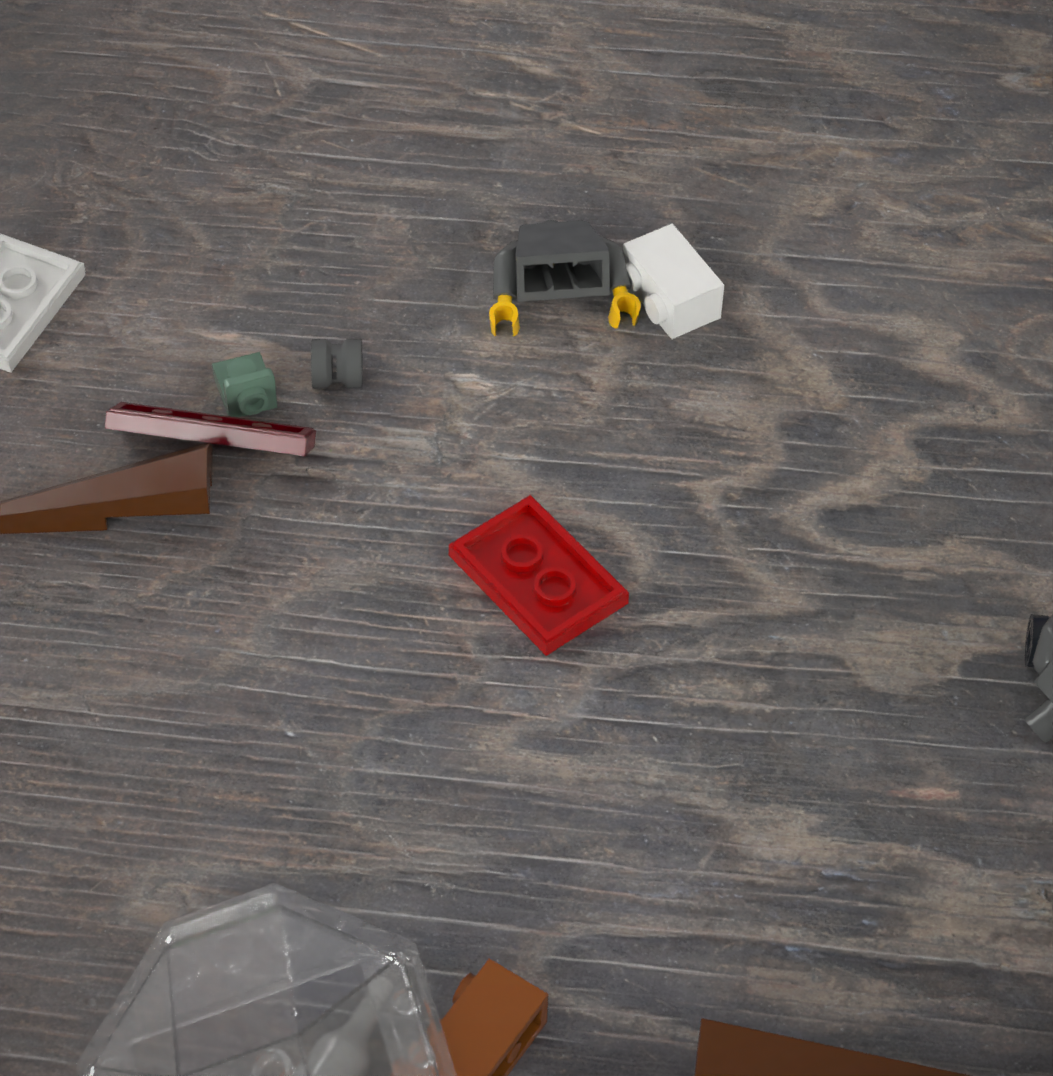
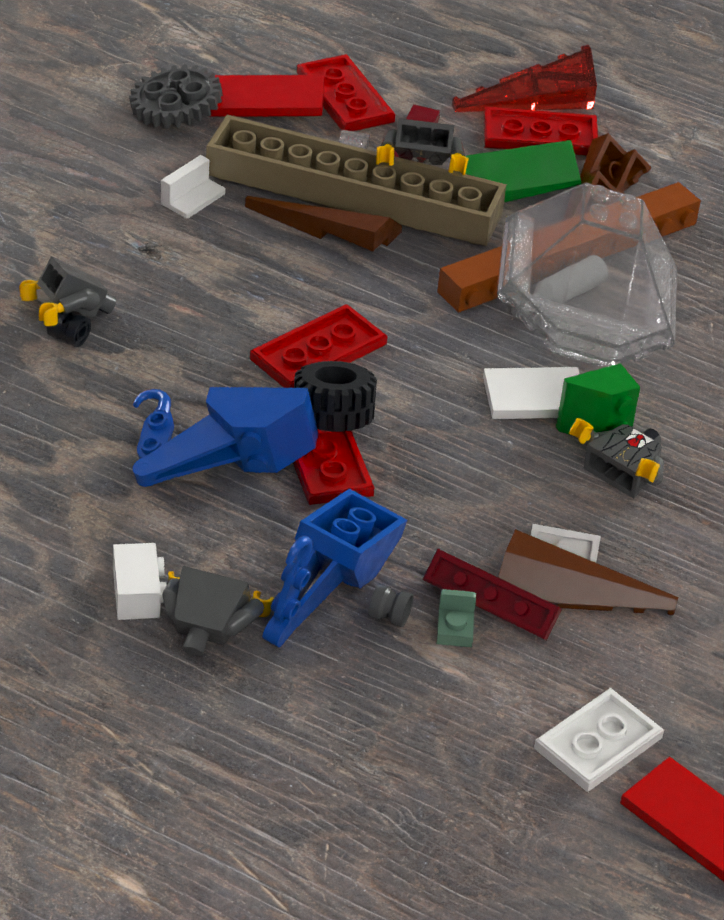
camera: 160 degrees left, 10 degrees down
(88, 729) = (622, 456): none -> dark grey torso
(139, 558) = (575, 542): none -> white panel
(157, 784) = (600, 397): none -> green slope
(284, 832) = (525, 391): none -> white tile
(434, 362) = (344, 538): none -> blue slope
(588, 601) = (339, 394): none -> black tyre
(670, 791) = (331, 337): none -> red tile
(675, 516) = (245, 425): none -> blue slope

